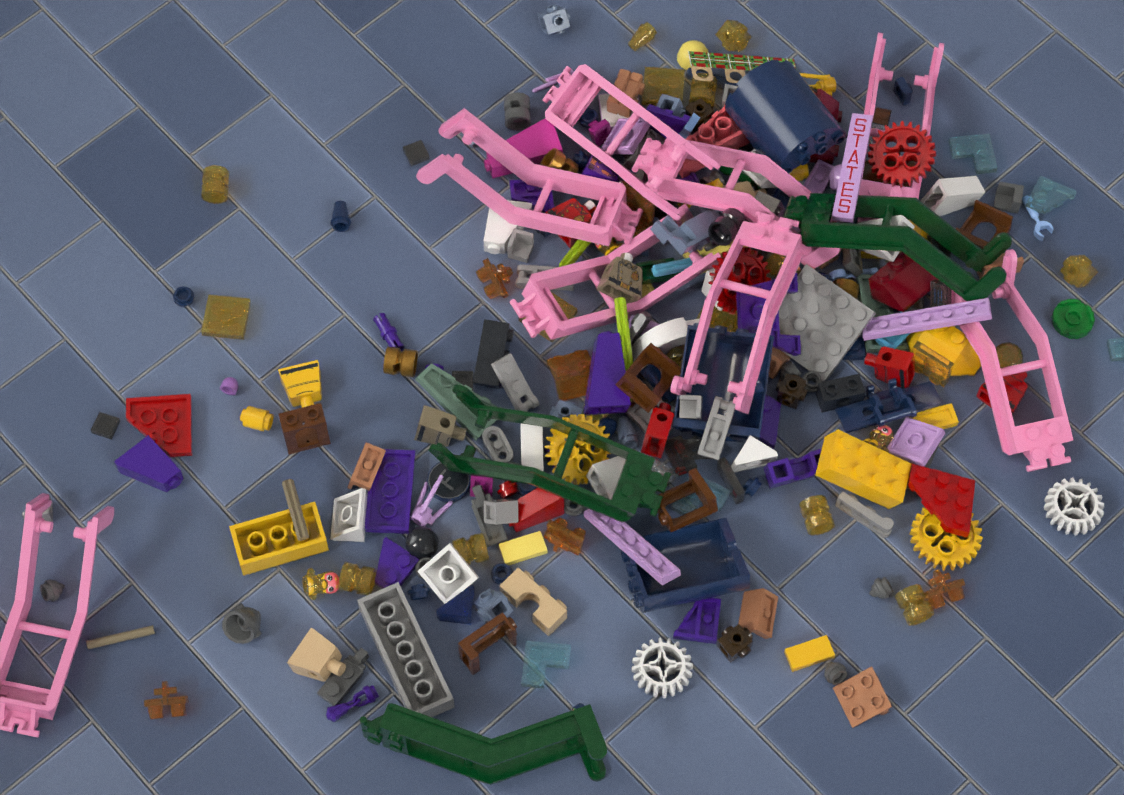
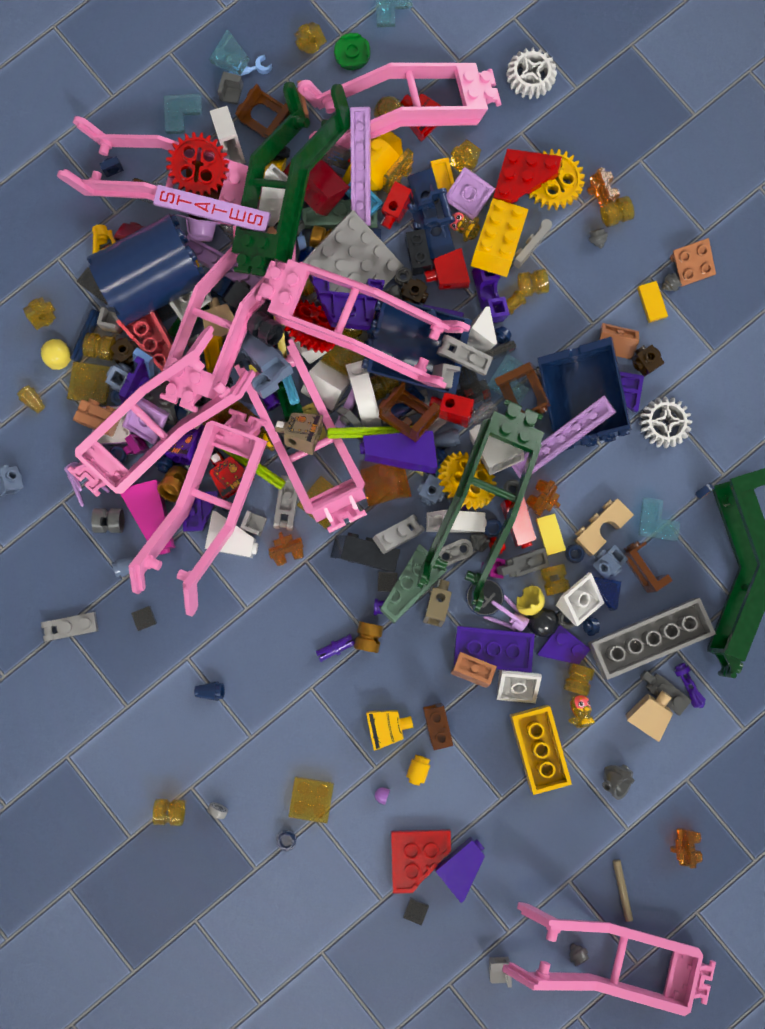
camera: 85 degrees left, 20 degrees up
(216, 229) = (217, 810): none -> light grey tile
(295, 510) = (522, 734): dark tan axle -> none
(405, 88) = (70, 626): none -> light grey plate
(443, 526) = (531, 601): none -> light yellow hair
(500, 511) = (527, 550): light grey panel -> none
(660, 252) = (271, 402): none -> dark purple bush
(681, 303) = (329, 384): none -> white slope
(728, 62) = (72, 311): piece -> none
(791, 496) = (515, 301): none -> clear yellow bush
(819, 423) = (449, 271): none -> red torso
(959, 436) = (465, 156): none -> clear yellow brick

